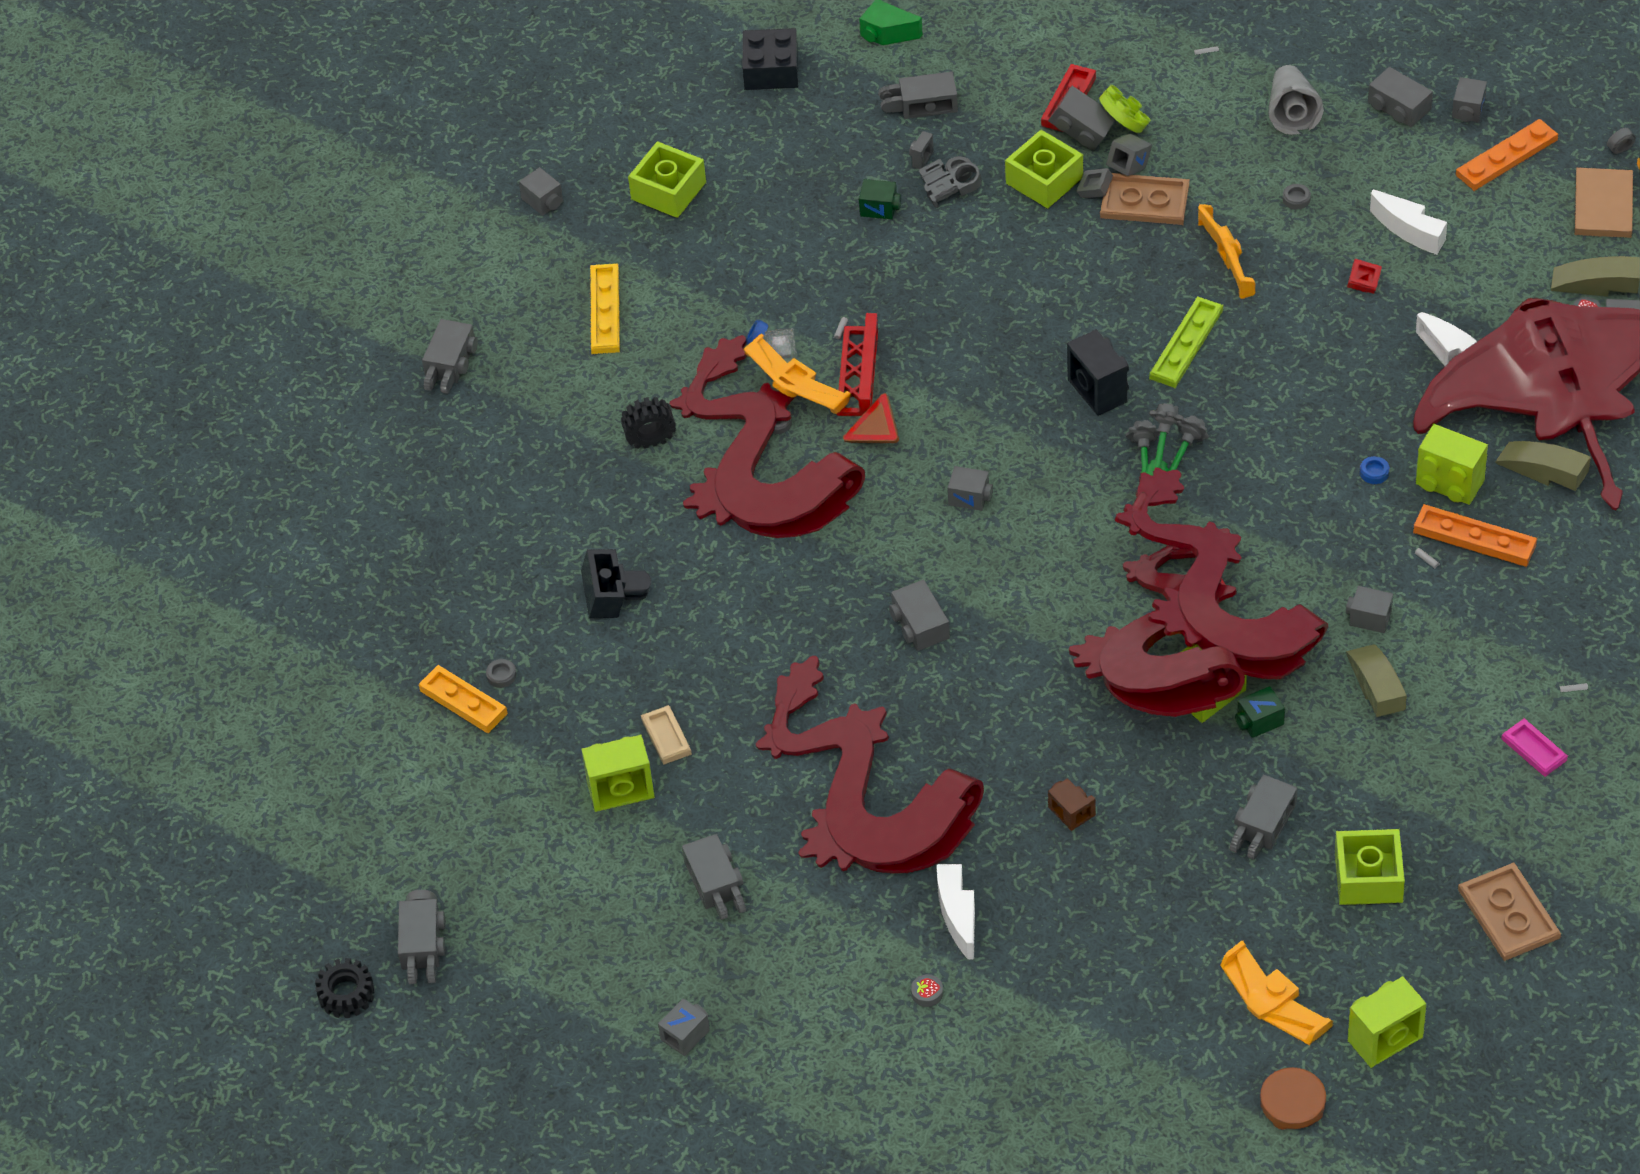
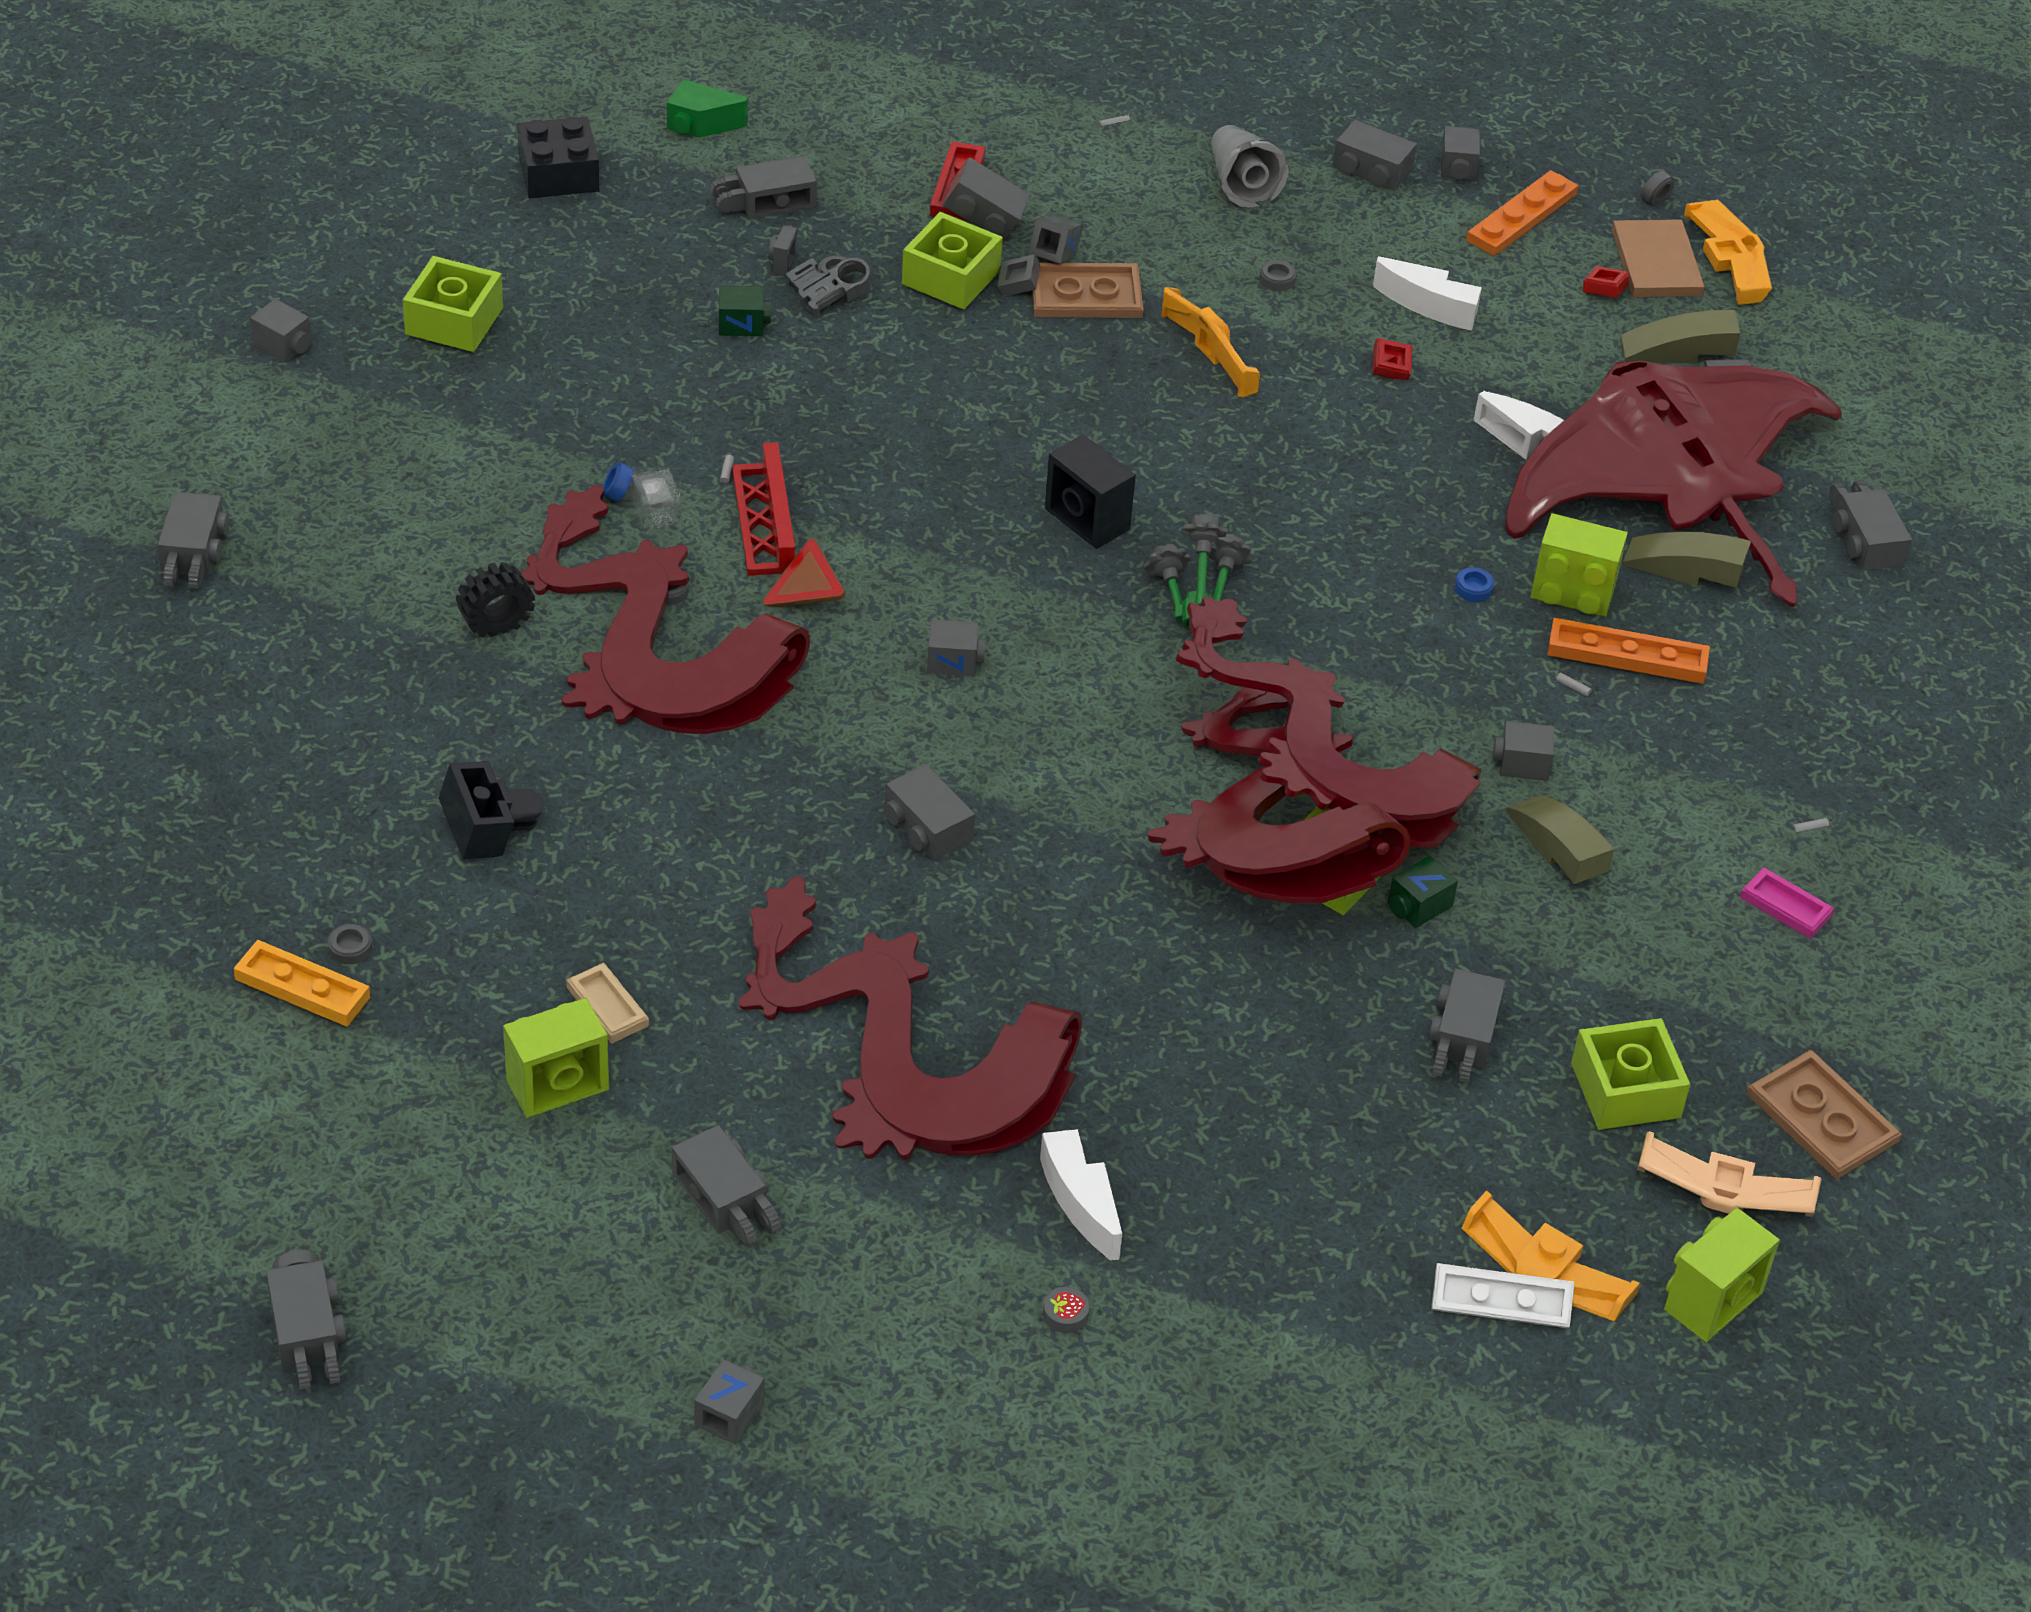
camera: 20 degrees left, 5 degrees down
(344, 1003) = (207, 1428): black tyre -> none
(605, 308) = (398, 468): yellow tile -> none
(794, 377) = (684, 527): light orange plate -> none
(1071, 804) = (1201, 1035): reddish brown brick -> none
(1124, 110) = (1037, 186): lime tile -> none
(1186, 342) = (1187, 452): lime tile -> none
(1232, 1017) = (1502, 1295): none -> white tile
(1293, 1098) = (1618, 1396): dark orange tile -> none
(1419, 954) = (1728, 1181): none -> light nougat plate
(1554, 221) = (1606, 281): none -> red tile

